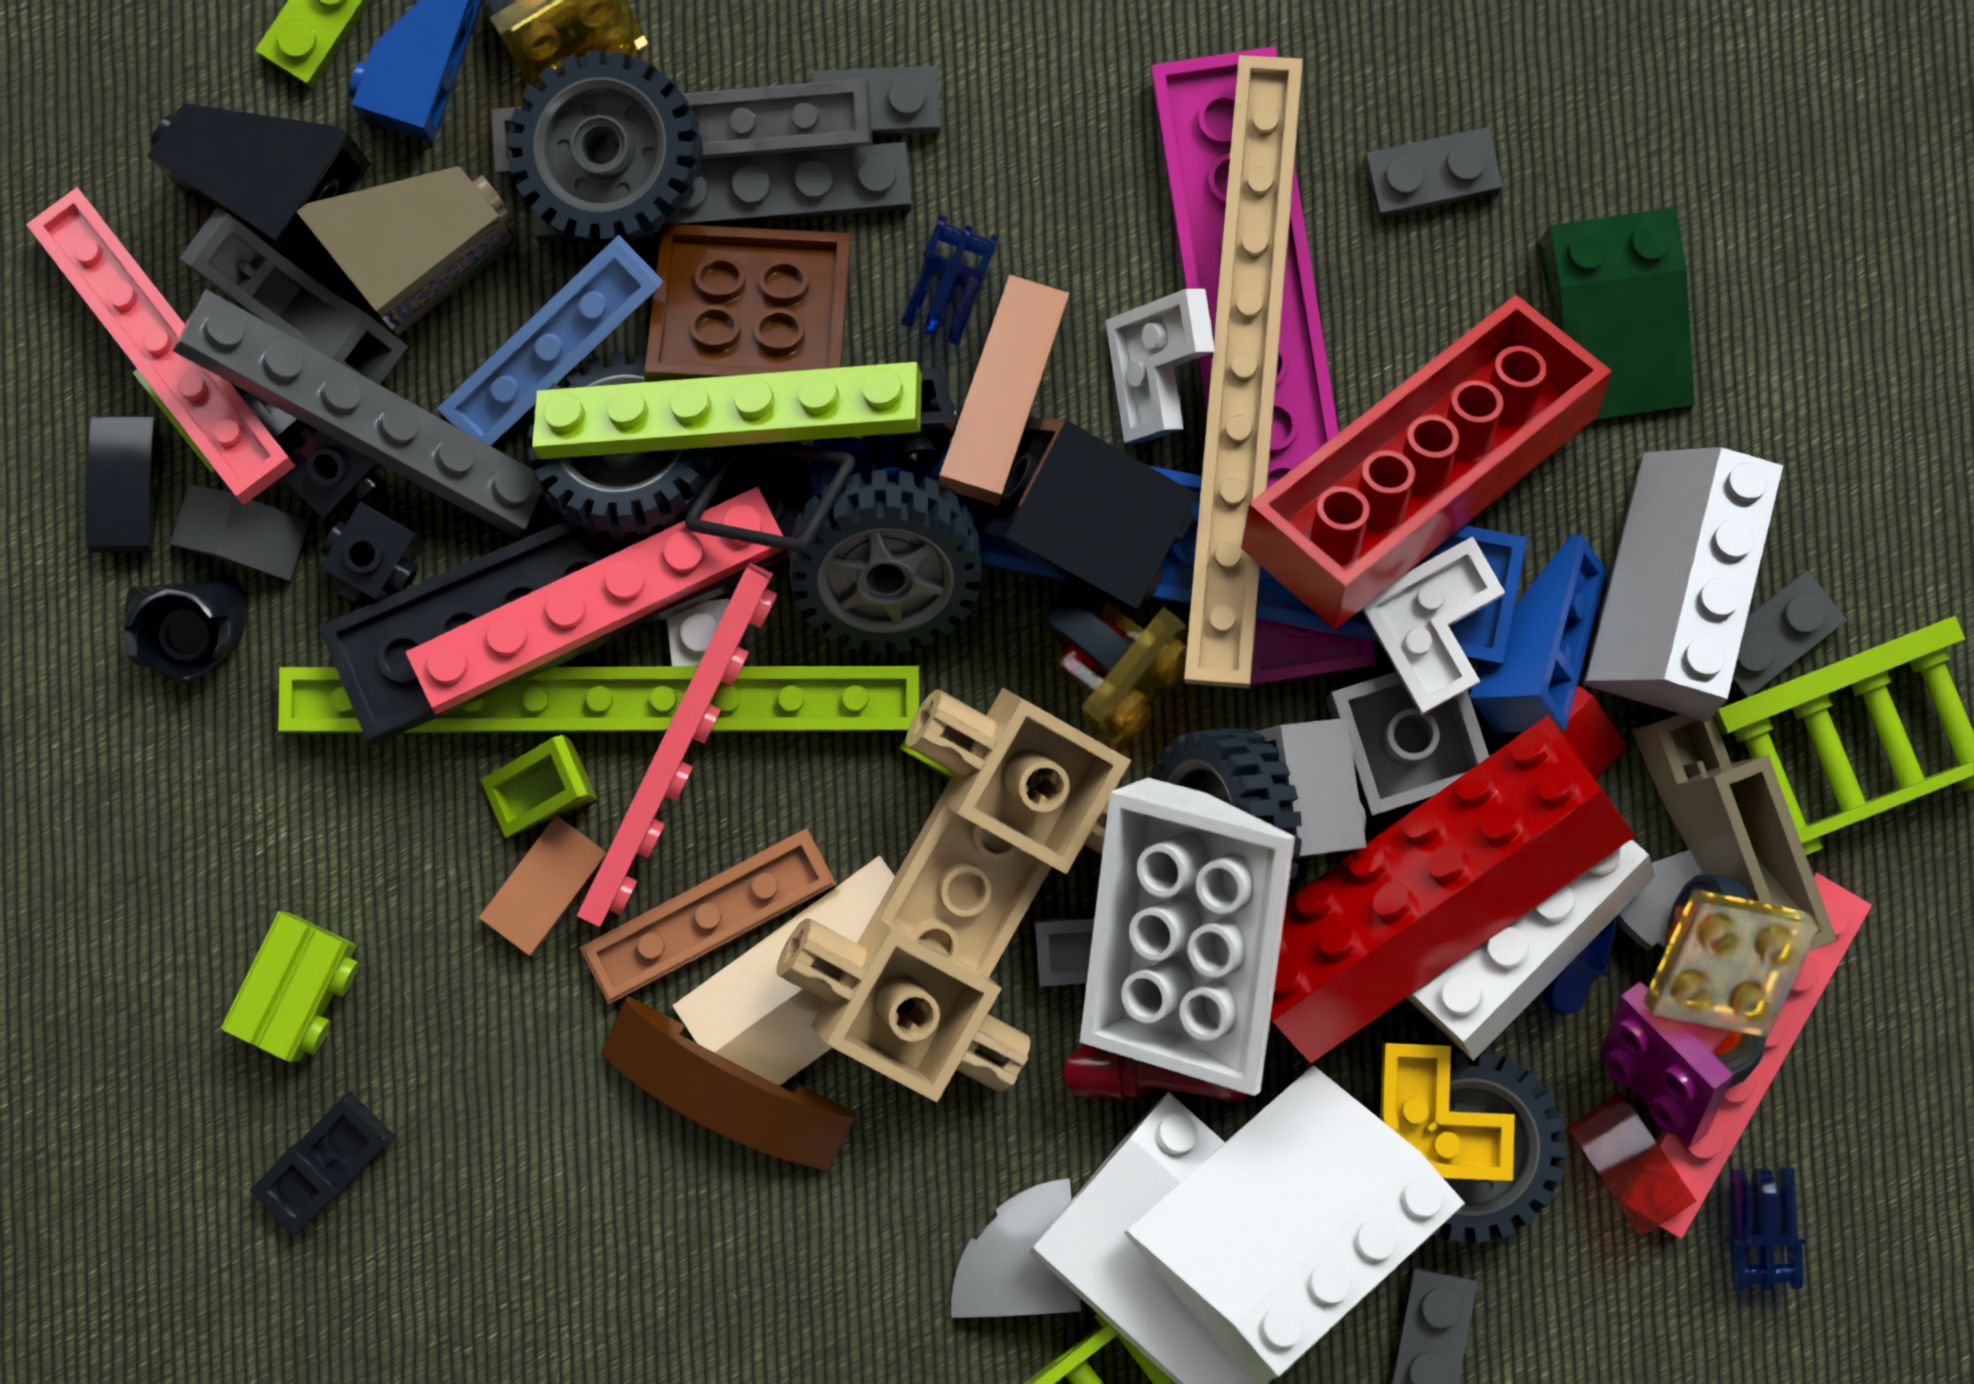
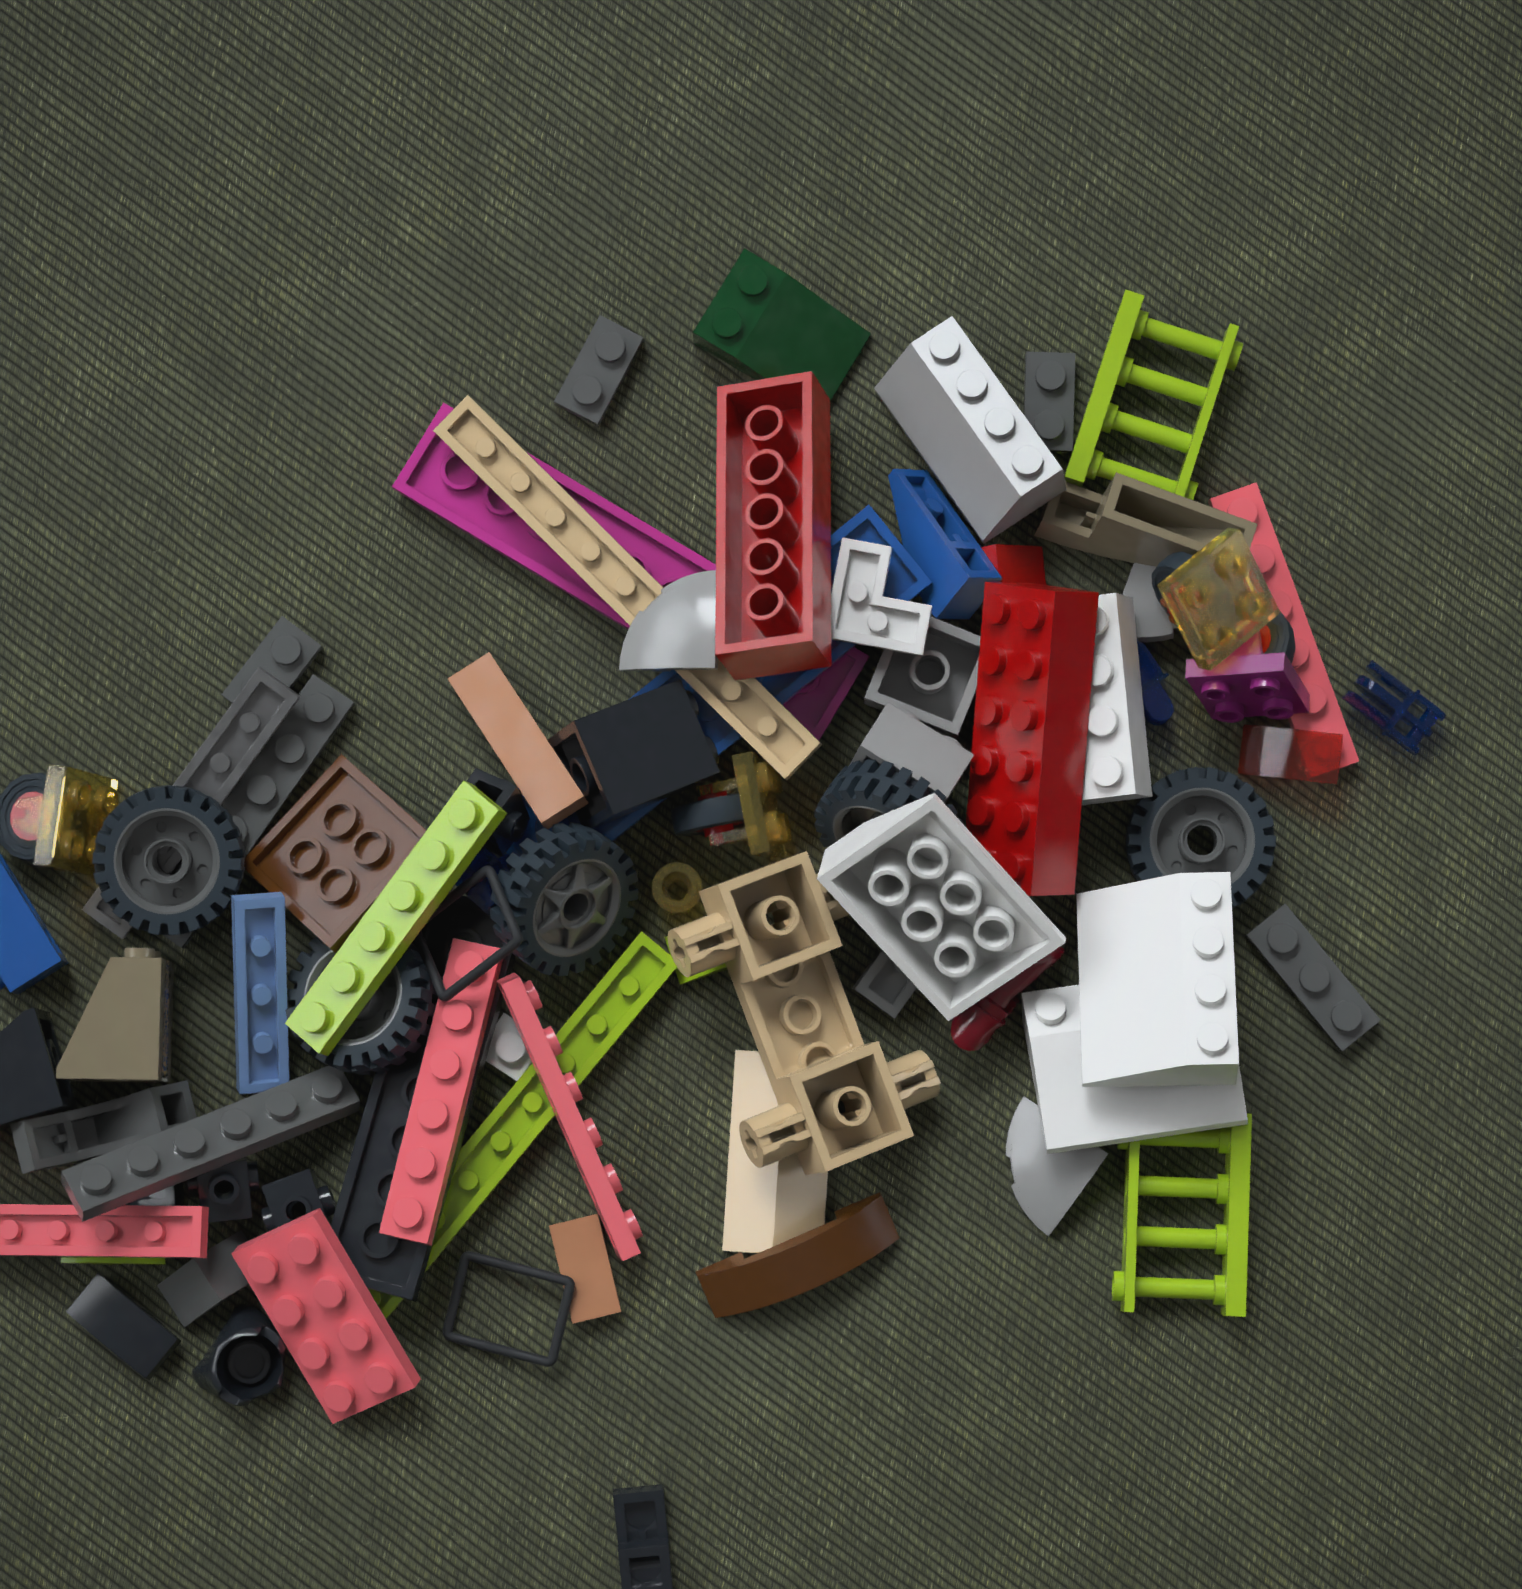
camera: 50 degrees left, 0 degrees up
(285, 670) = (326, 1316): none -> coral plate
(291, 988) = (521, 1472): lime brick -> none
(396, 866) = (497, 1348): none -> black piece
(538, 786) = (522, 1223): lime slope -> none
(708, 916) = (686, 1184): nougat tile -> none
(951, 274) = (418, 713): clear blue arm -> none
(985, 646) = (677, 873): none -> clear yellow brick
(1143, 353) = (565, 638): white plate -> none
(1241, 446) = (675, 628): none -> light grey brick
(1417, 1108) = (1154, 854): yellow plate -> none

